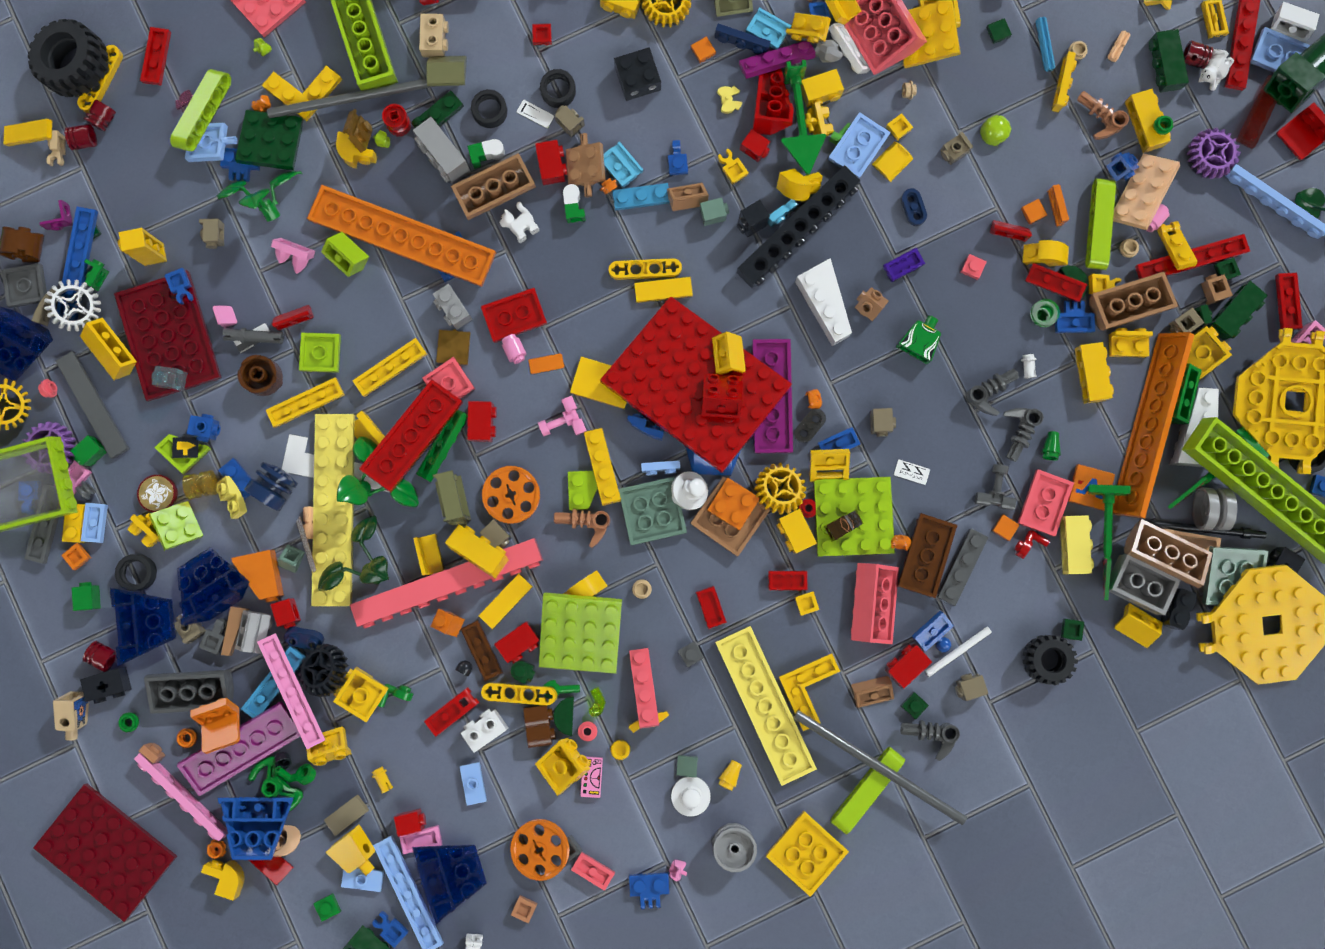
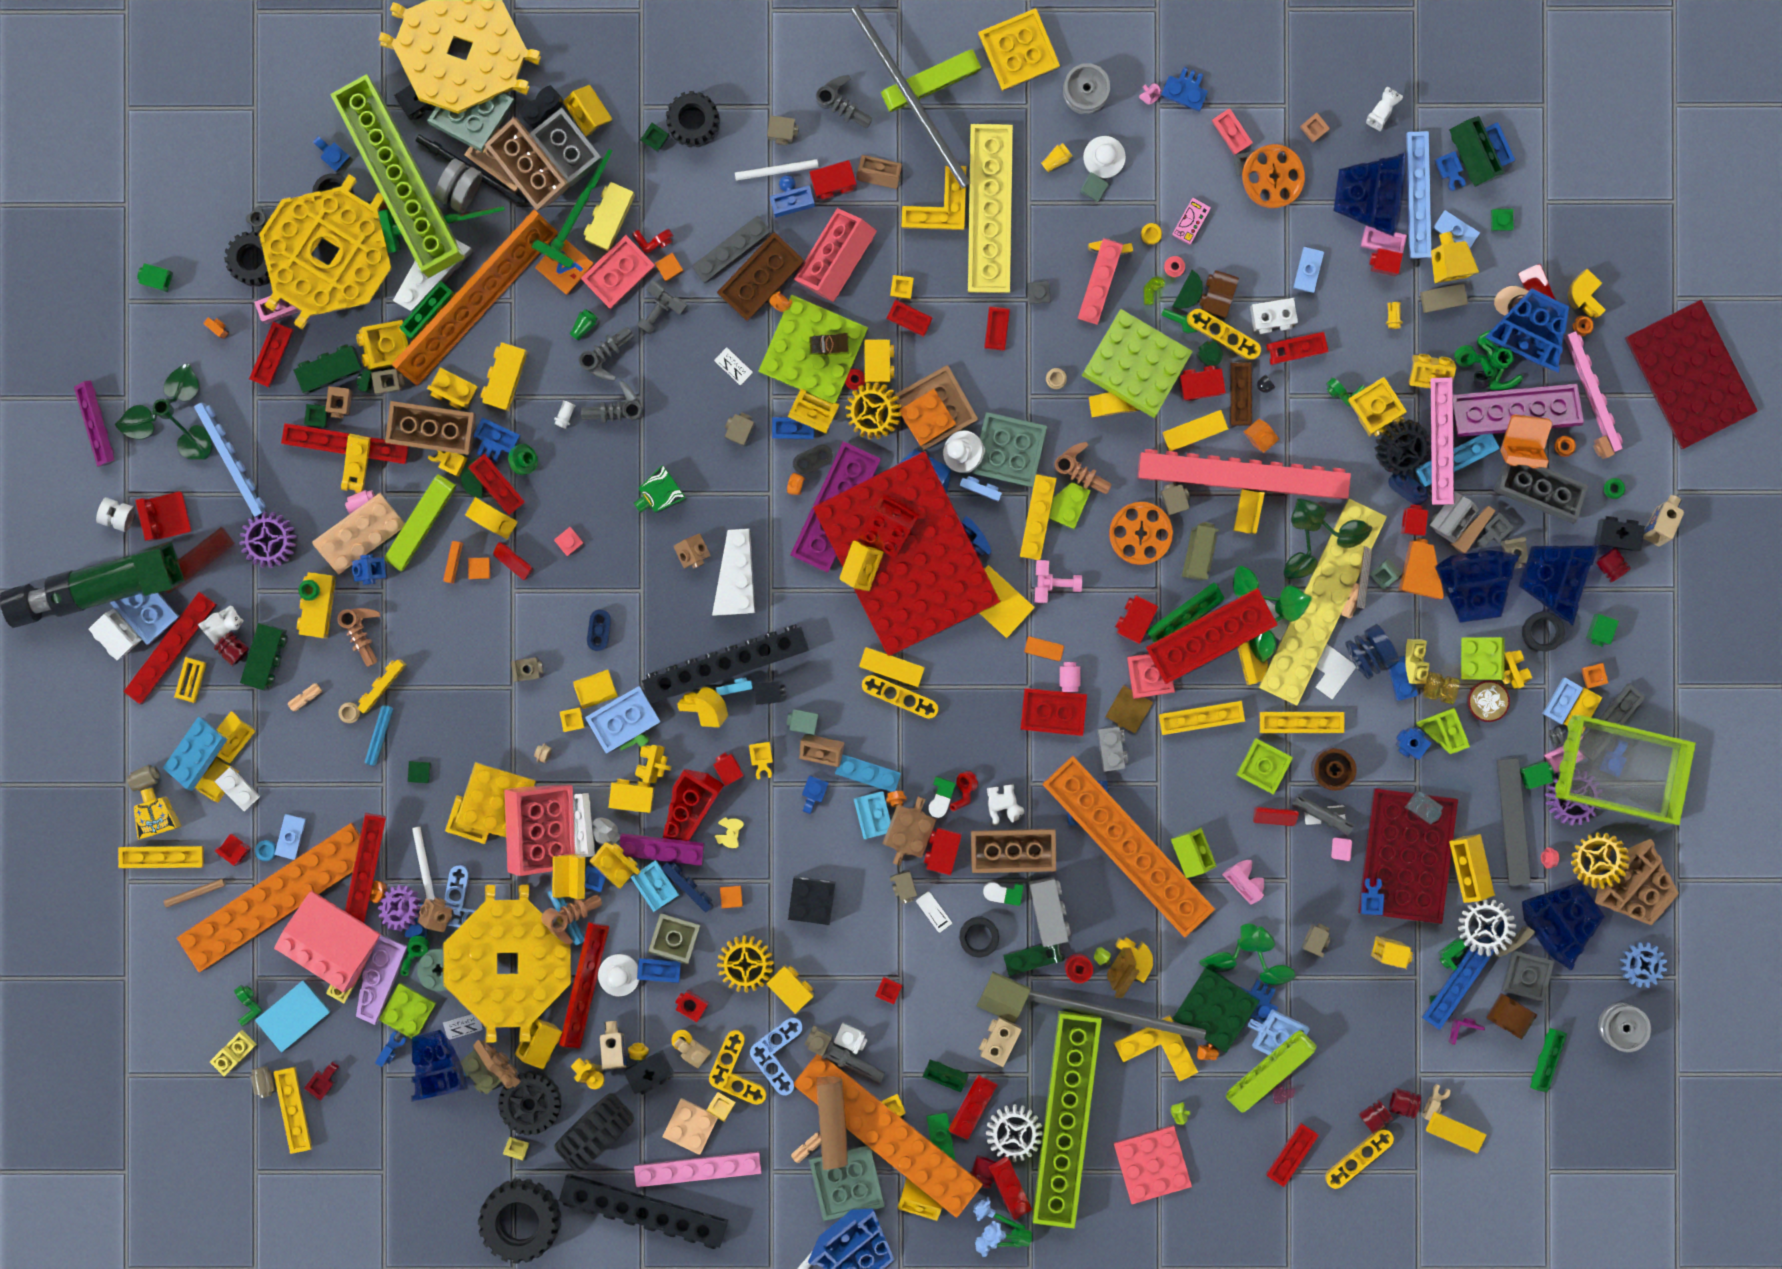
camera: 150 degrees left, 5 degrees up
(52, 46) = (1394, 1209): black tyre -> none
(185, 447) = (1440, 732): black sticker -> none
(477, 550) = (1199, 490): yellow brick -> none
(556, 225) = (966, 783): none -> red plate
(557, 74) = (894, 940): black tyre -> none
(563, 765) = (1213, 244): yellow plate -> none
(804, 147) = (681, 740): green piece -> none
(903, 264) = (638, 576): dark purple plate -> none
(914, 705) = (845, 139): dark green plate -> none
(995, 130) = (475, 670): lime hair -> none
(1129, 248) = (402, 485): tan plate -> none

